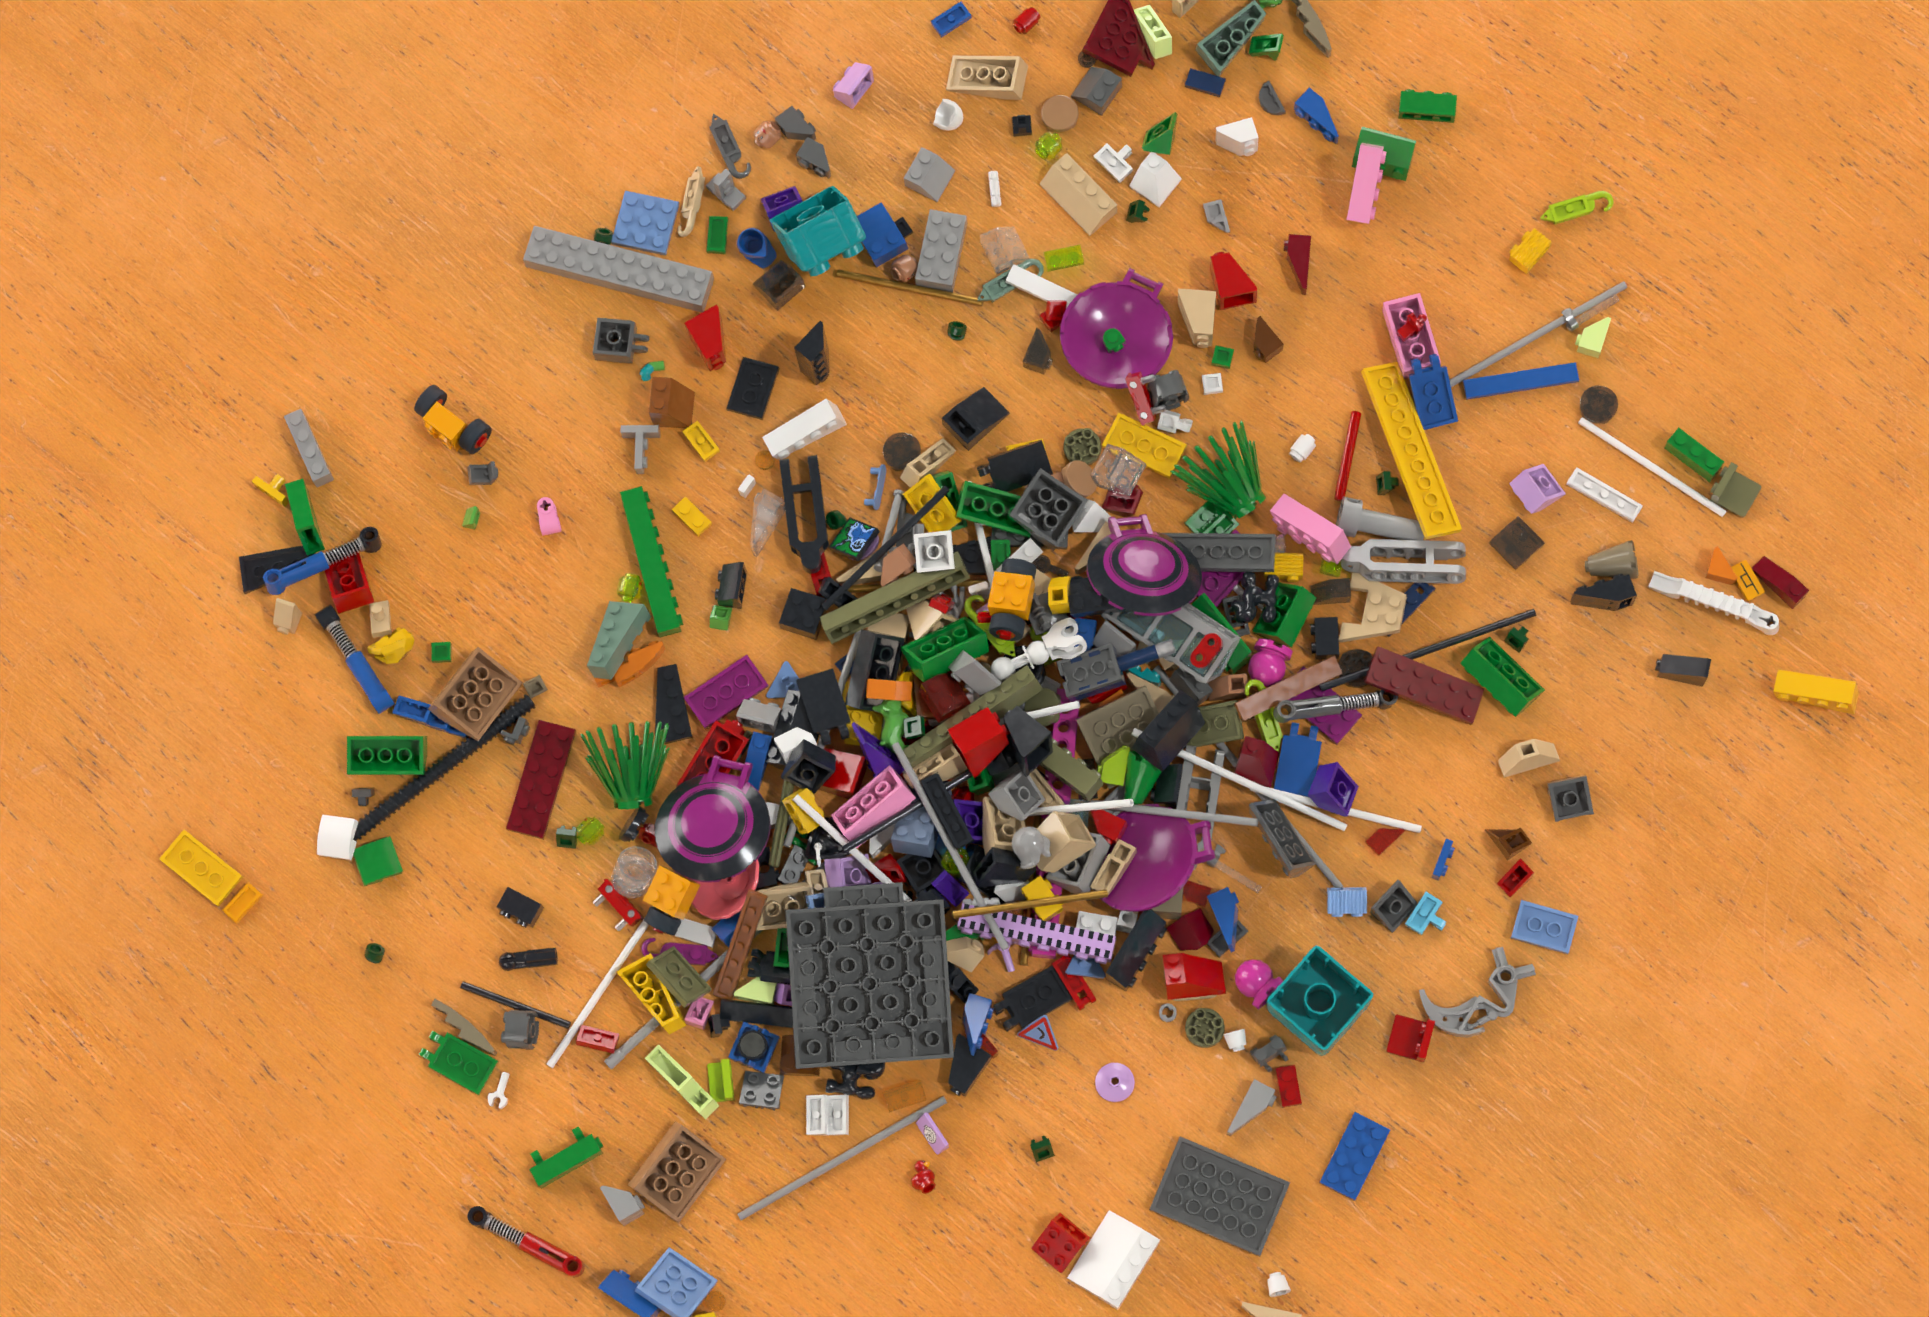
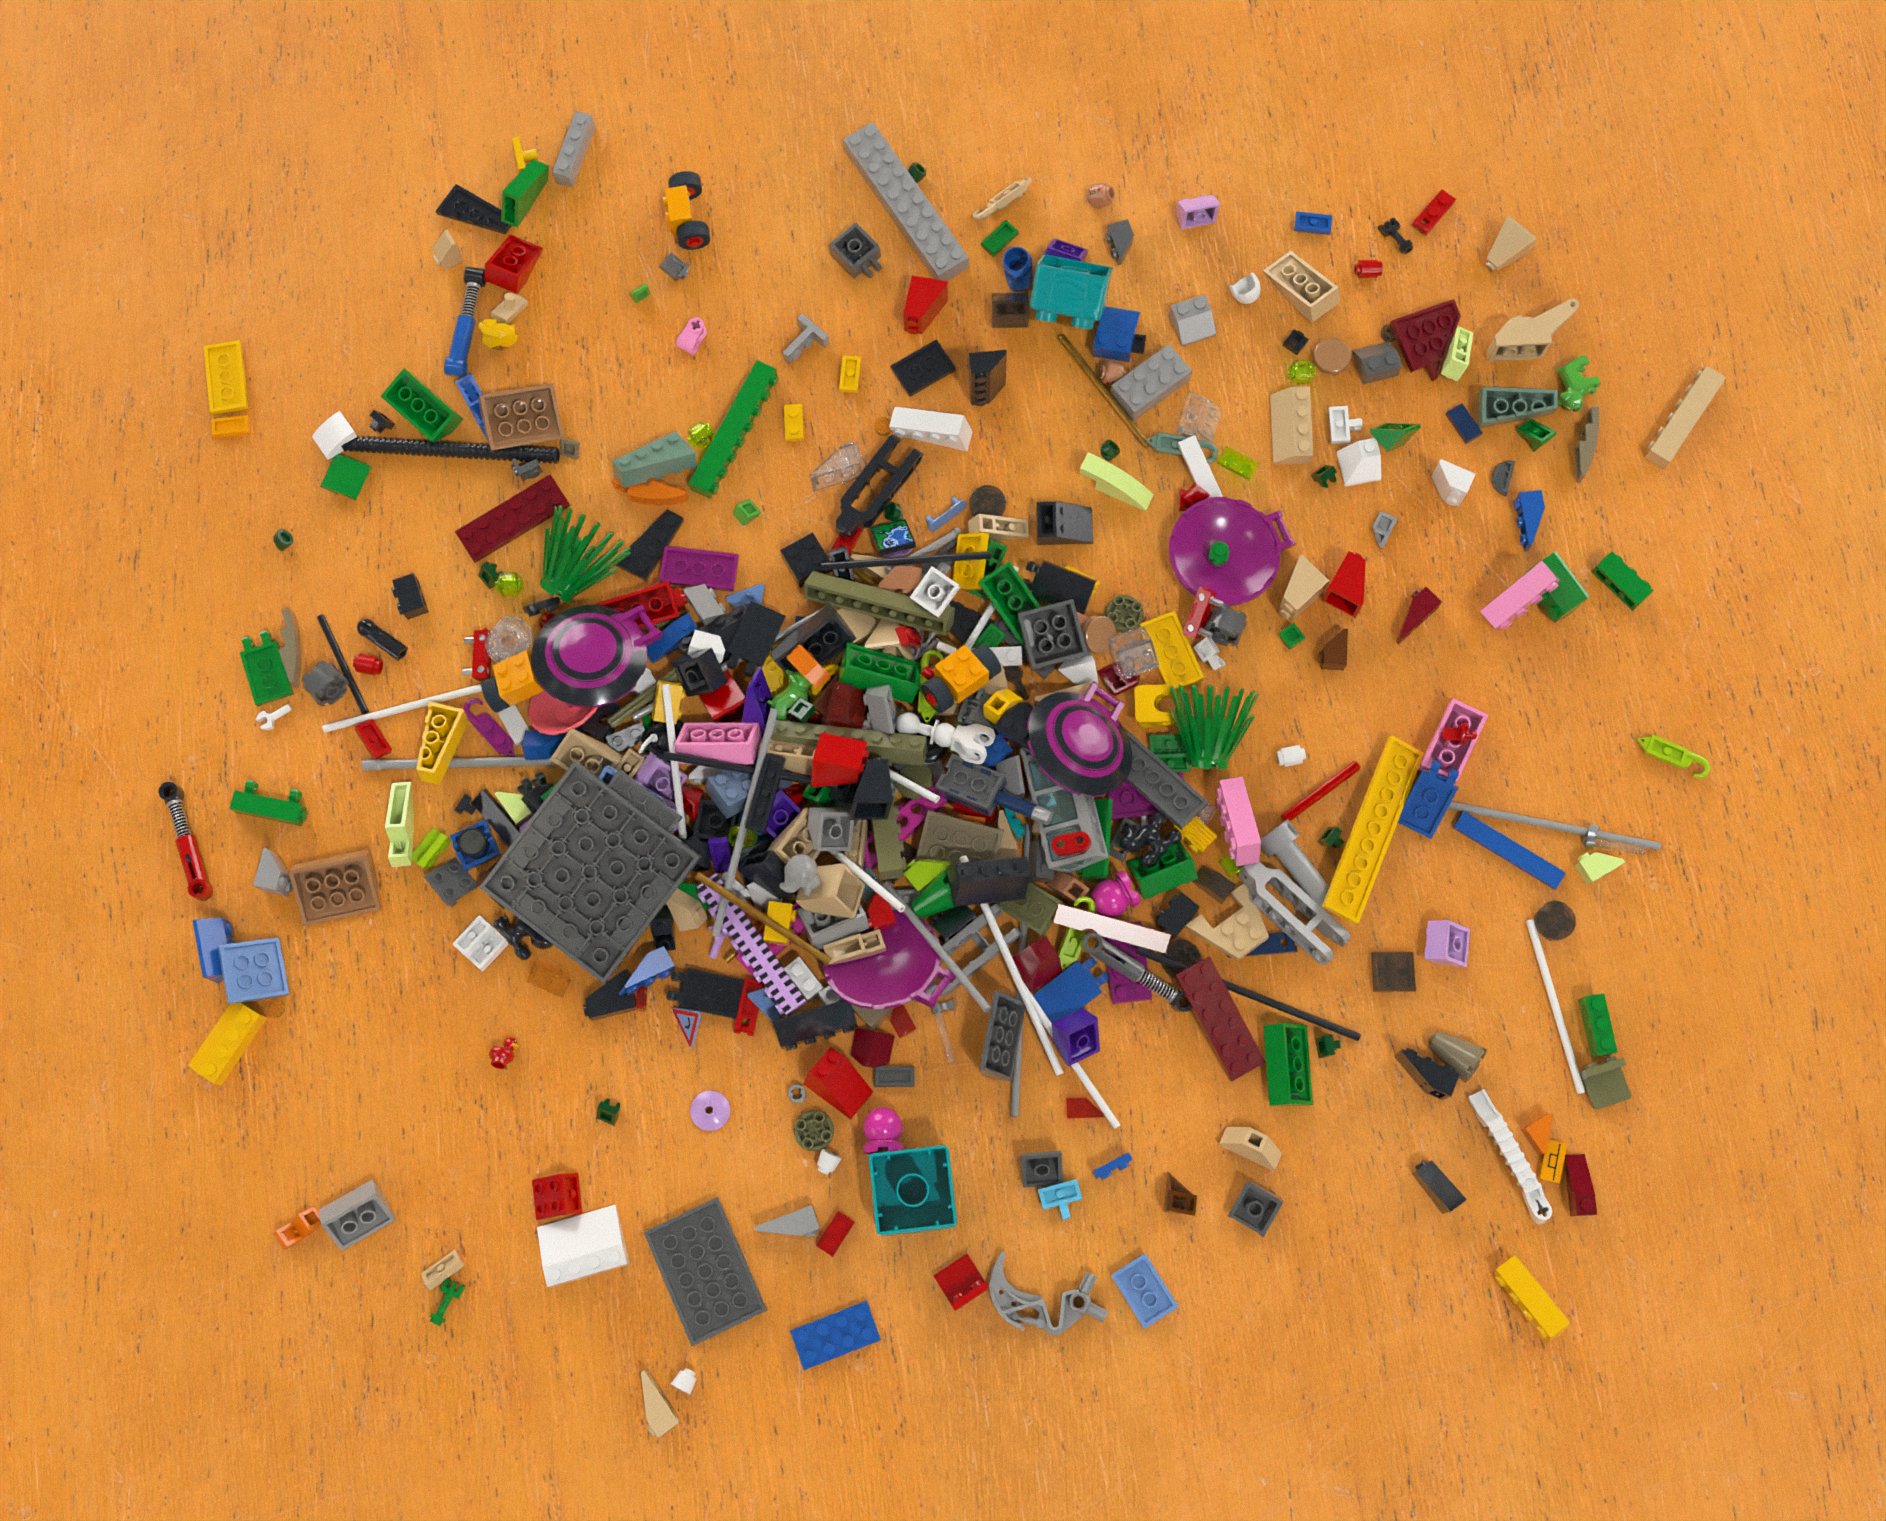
camera: 35 degrees right, 0 degrees up
(278, 580) = (463, 221): piece -> none
(441, 652) = (529, 368): green plate -> none
(537, 987) = (368, 664): none -> red brick
(645, 223) = (956, 188): medium blue plate -> none
(646, 371) = (864, 292): arm -> none
(671, 403) = (851, 326): dark orange slope -> none
(678, 976) = (467, 744): olive tile -> none
(699, 1013) = (460, 784): bright pink slope -> none
(724, 189) = (1034, 210): light grey bracket -> none
(727, 146) = (1065, 181): dark grey plate -> none
(732, 585) = (774, 495): black slope -> none
(740, 944) = (531, 759): dark orange tile -> none
(746, 486) = (852, 433): white tile -> none
(794, 126) = (1126, 205): dark grey slope -> none
(841, 1158) = (462, 985): light grey piece -> none
(932, 1133) = (542, 1027): lavender slope -> none
(986, 351) = (1115, 482): none -> yellowish green slope
(994, 188) = (1232, 371): white axle -> none
(1038, 354) = (1153, 516): clear smoke slope -> none
(1163, 503) = (1146, 704): none -> yellow piece
(1212, 383) = (1265, 650): white tile -> none
(1226, 913) = (907, 1059): blue slope -> none
(1269, 1052) = (844, 1194): dark grey piece -> none
(1347, 900) = (1008, 1131): light blue brick -> none
(1515, 878) = (1156, 1232): red slope -> none
(1530, 251) = (1606, 756): yellow brick -> none
(1604, 495) = (1497, 995): white tile -> none

